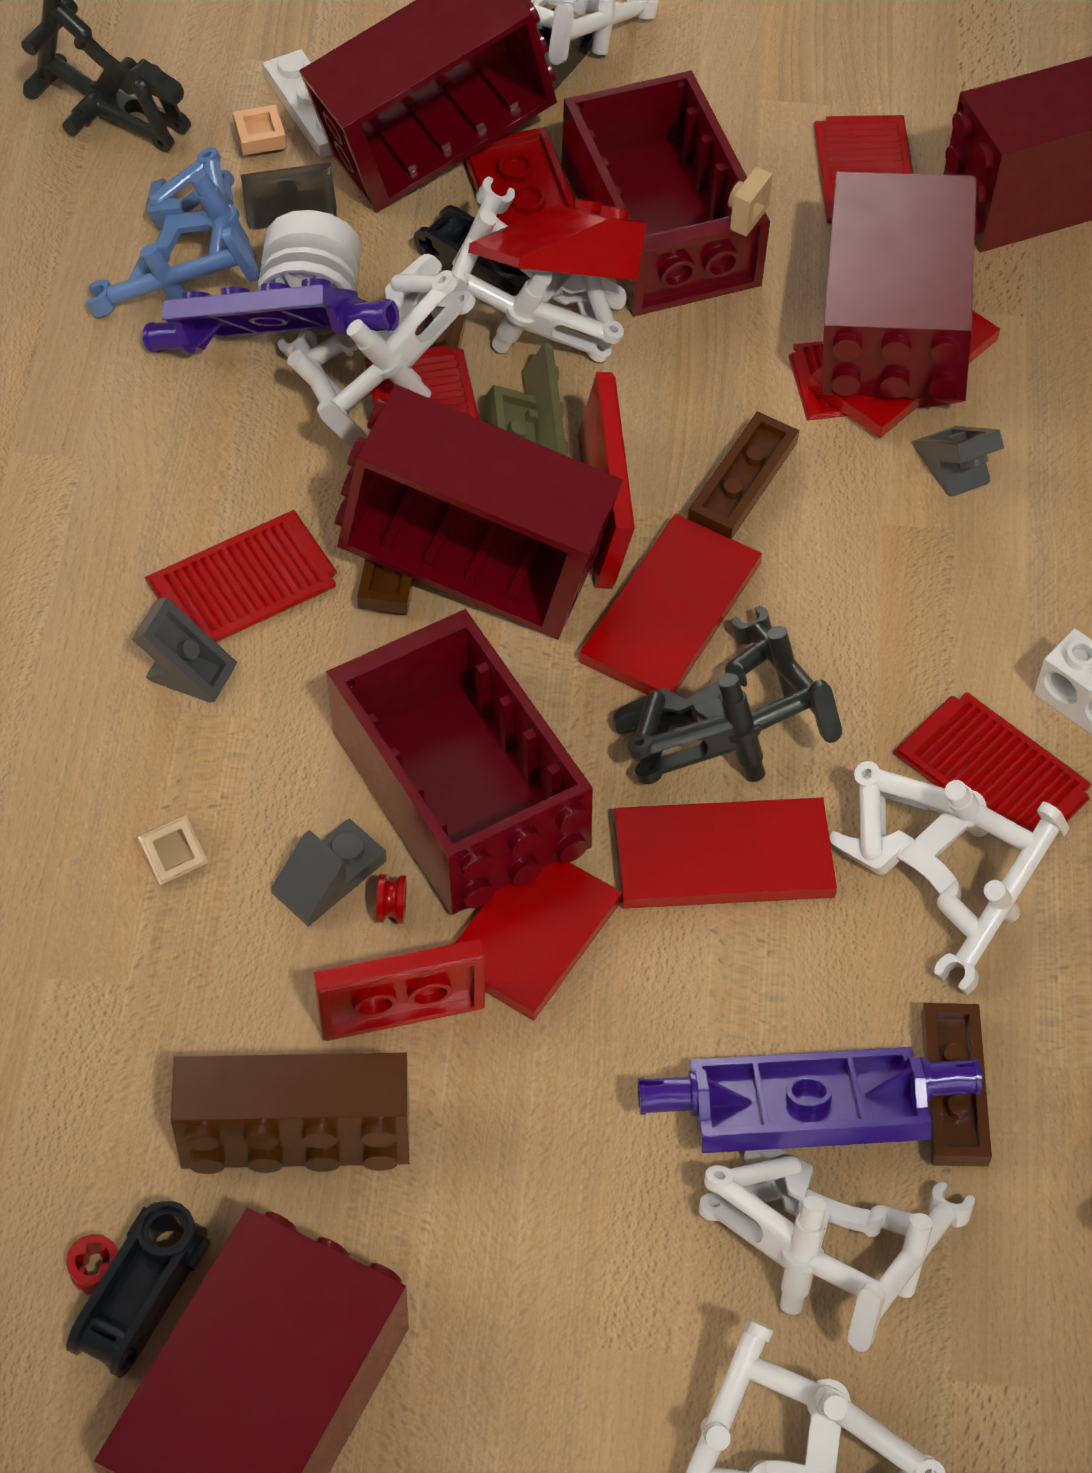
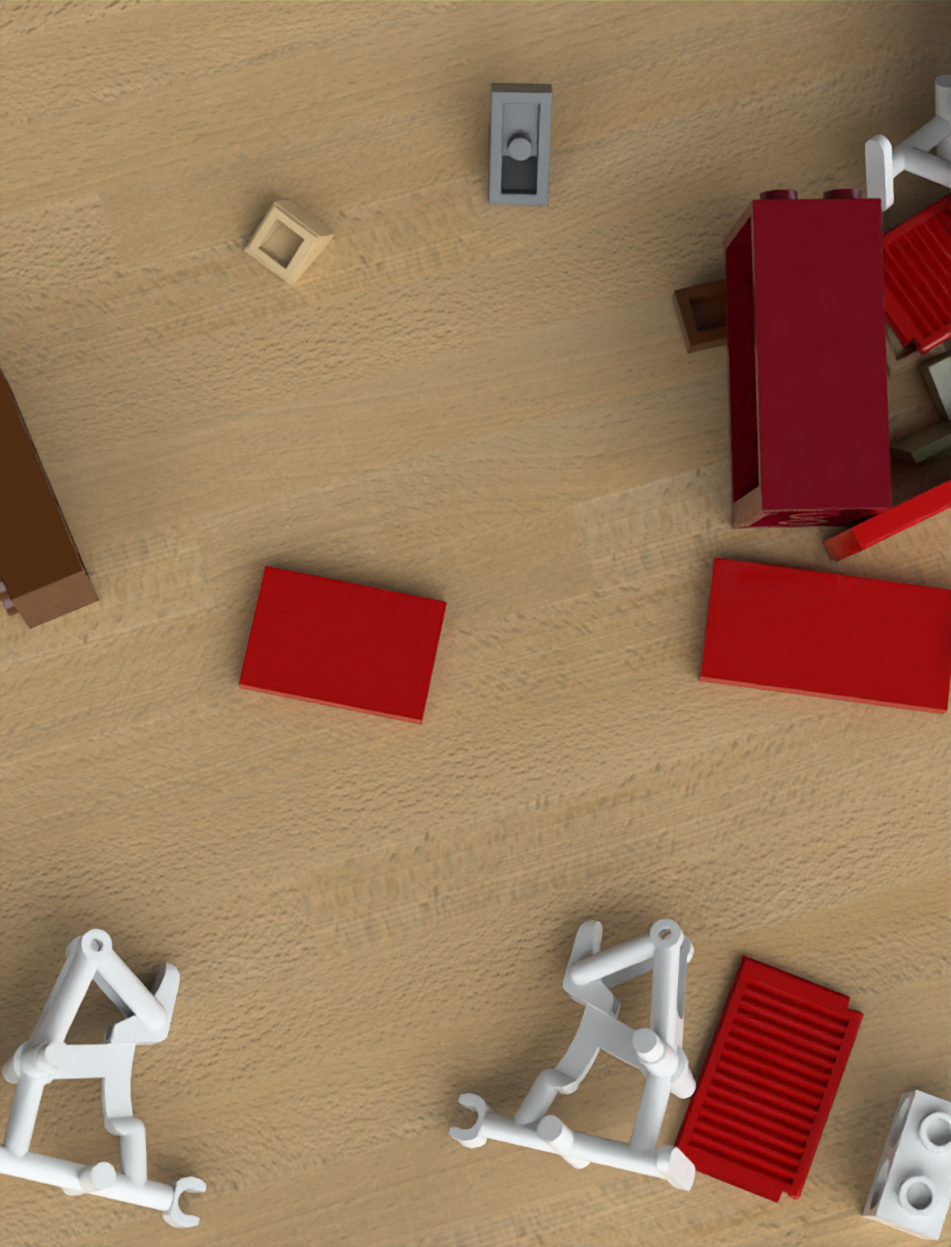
camera: 65 degrees right, 20 degrees up
(247, 577) = (658, 165): red window -> none
(326, 870) = (321, 406): dark grey slope -> none
(391, 899) = (312, 484): red bush -> none
(400, 990) = (187, 536): red tile -> none
(460, 761) = (489, 482): dark red container -> none
(724, 853) = (524, 812): red tile -> none
(725, 710) = (663, 761): pearl dark grey piece -> none
(810, 1097) = (238, 1008): dark purple plate -> none
(958, 1121) = (328, 1162): reddish brown plate -> none

